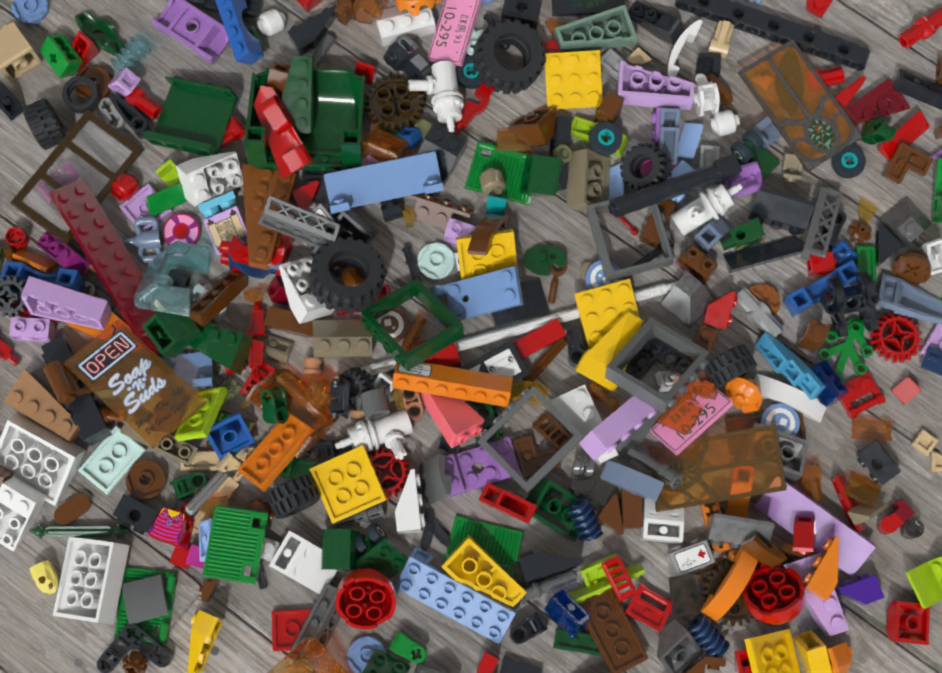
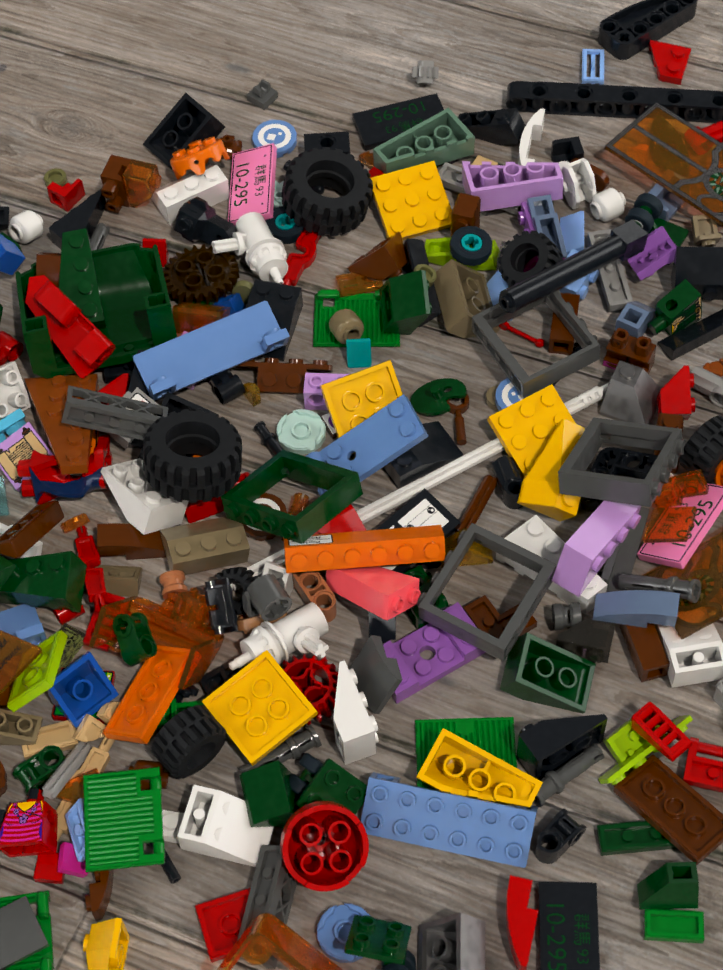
camera: 10 degrees left, 20 degrees down
(277, 291) = (107, 509): dark red panel -> none
(398, 400) = (297, 595): clear yellow tile -> none
(404, 647) = (397, 903): green piece -> none
(431, 528) = (390, 743): black piece -> none
(484, 232) = (354, 374): reddish brown slope -> none
(507, 503) = (480, 679): red slope -> none
(539, 339) = (462, 481): red tile -> none
(557, 427) = (515, 580): reddish brown slope -> none
(567, 613) = (606, 797): clear blue brick -> none
(585, 519) = (590, 674): dark blue piece -> none
(611, 403) = (559, 527): clear orange pin -> none
(611, 516) = (624, 667): reddish brown slope -> none
(704, 208) = (622, 283): white piece -> none
(720, 42) = (573, 123): tan piece -> none

